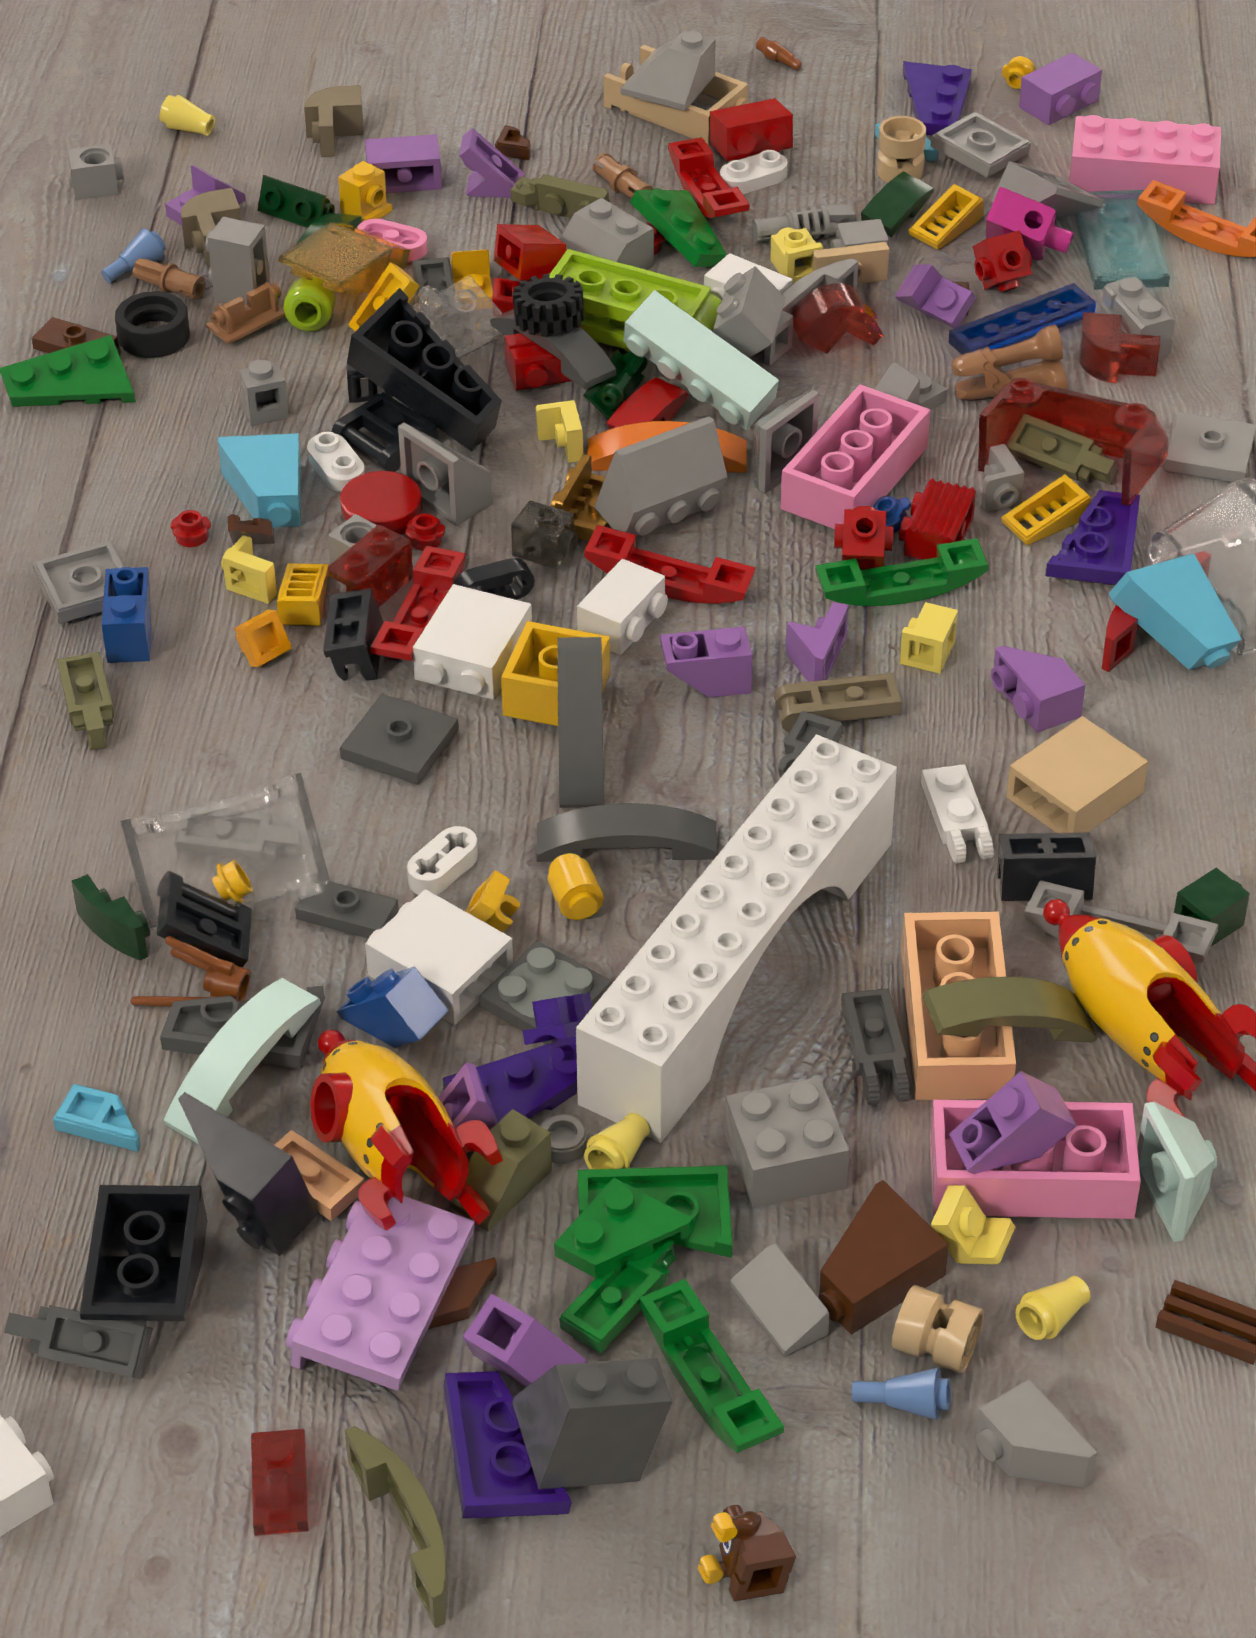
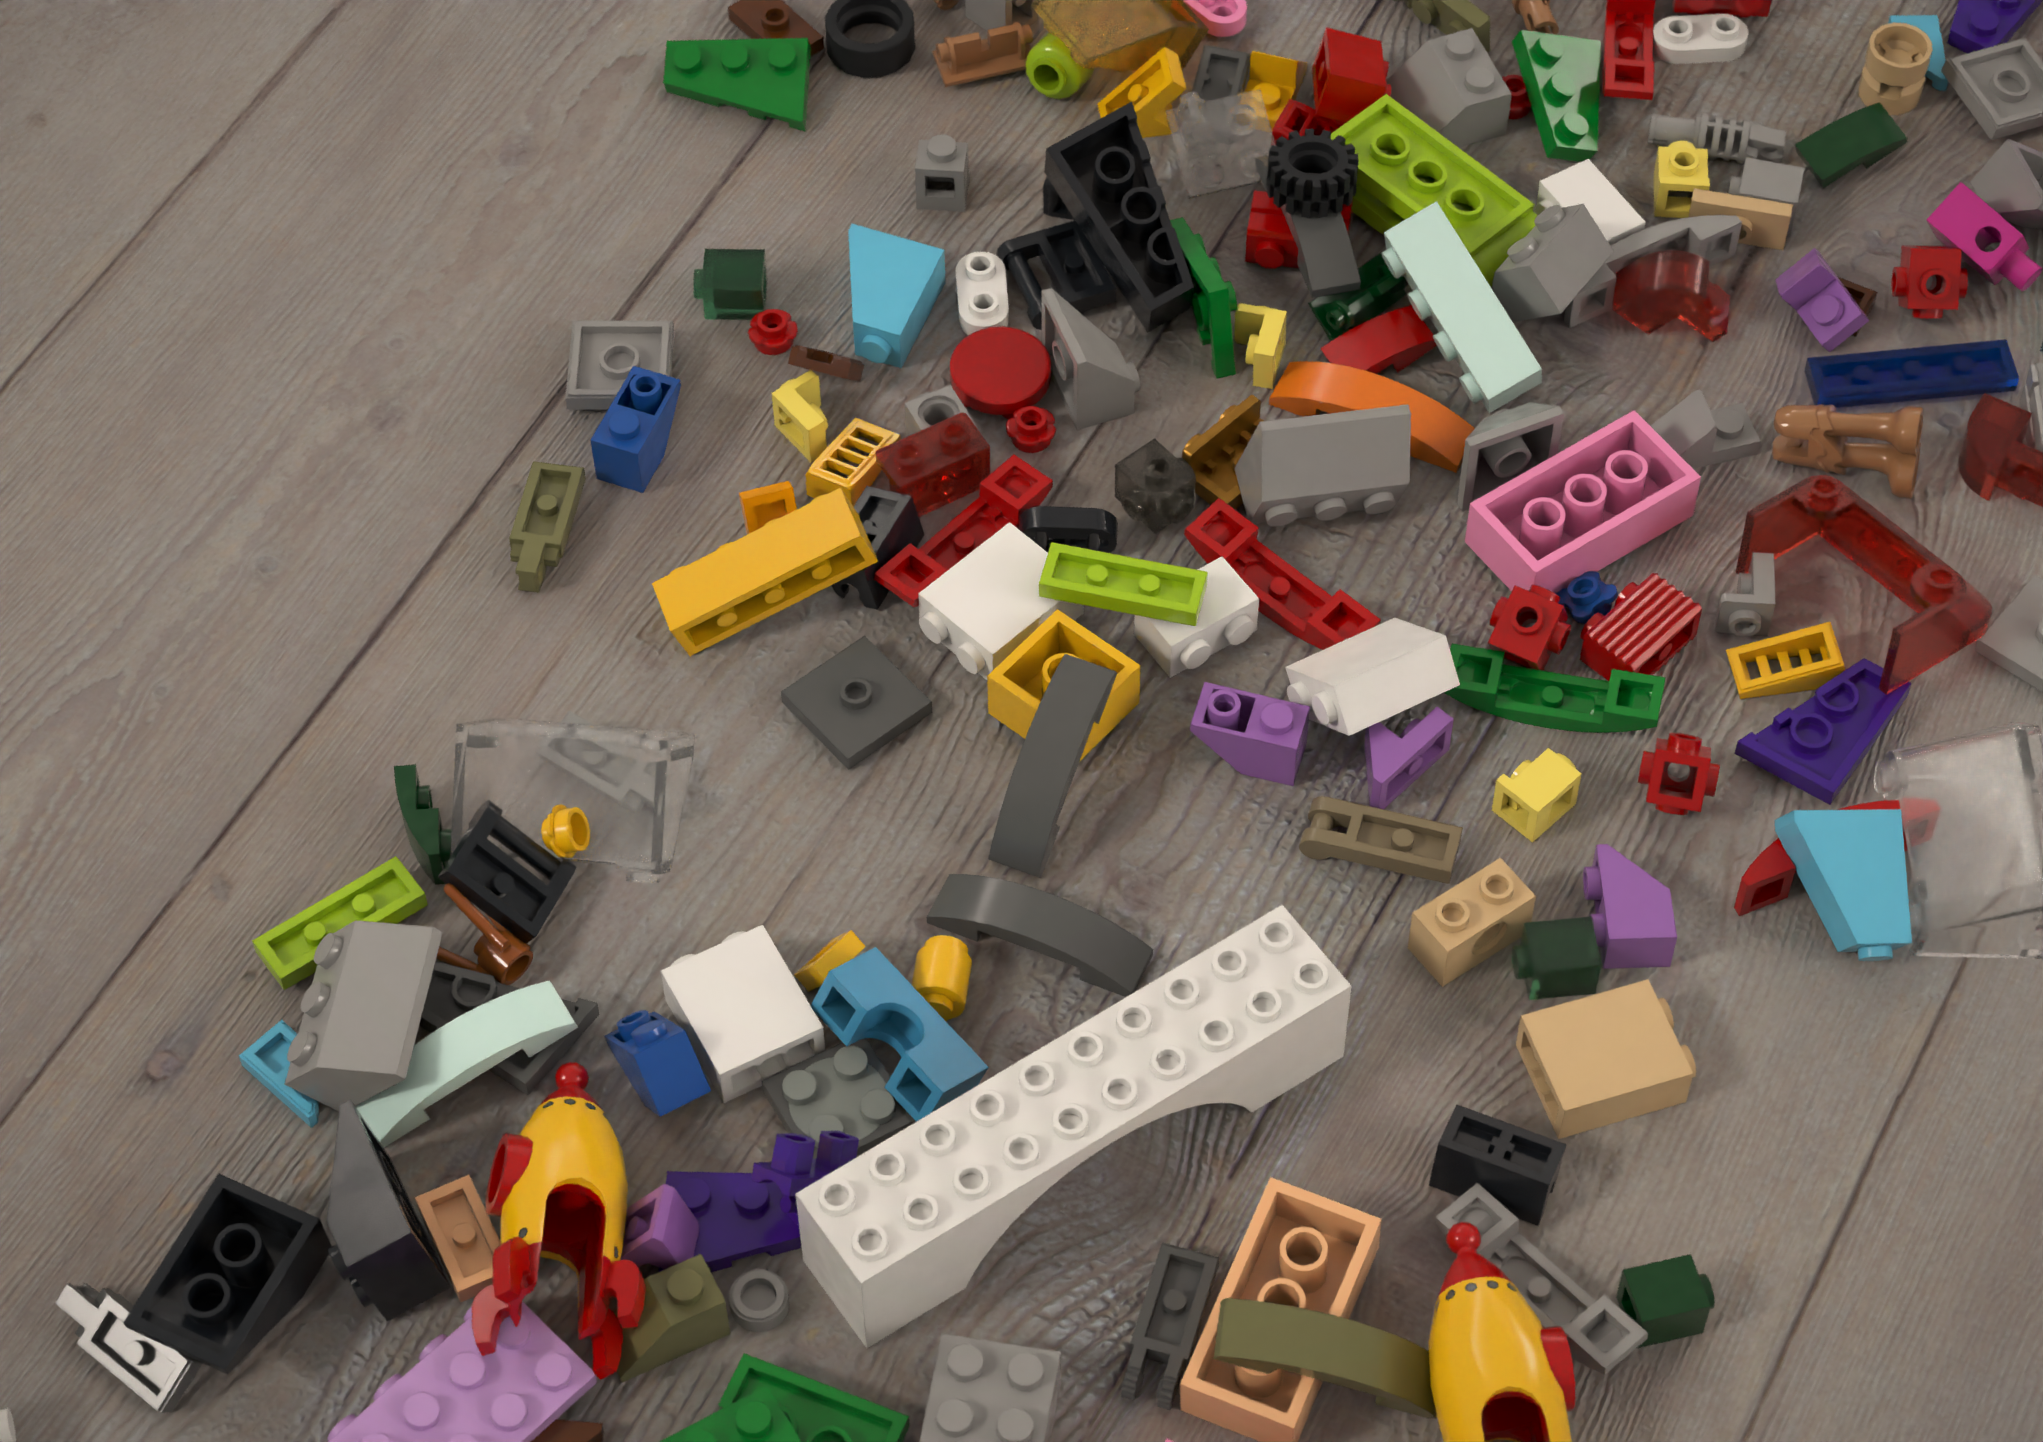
camera: 25 degrees right, 10 degrees up
(82, 1004) = (380, 895): none -> lime plate
(143, 505) = (732, 283): none -> clear green brick
(147, 1046) = (362, 1011): none -> light grey slope
(288, 668) = (764, 572): none -> yellow brick
(347, 909) = (684, 910): dark grey plate -> none
(438, 857) = (817, 885): white beam -> none
(520, 416) = (1210, 300): none -> green wing
(543, 911) = (877, 1002): none -> dark azure arch
(565, 591) = (1123, 584): none -> lime plate
(617, 1144) = (807, 1337): light yellow cone -> none
(778, 594) = (1372, 675): none -> white brick
(803, 732) = (1315, 886): dark grey plate -> none
(935, 725) = (1470, 922): none -> tan brick
(955, 198) = (1909, 168): yellow slope -> none
(956, 811) = (1441, 1042): white hinge -> none
(1008, 729) = (1558, 958): none -> clear green brick
(1034, 588) = (1678, 794): none -> red brick
(1060, 451) = (1846, 579): olive hinge -> none

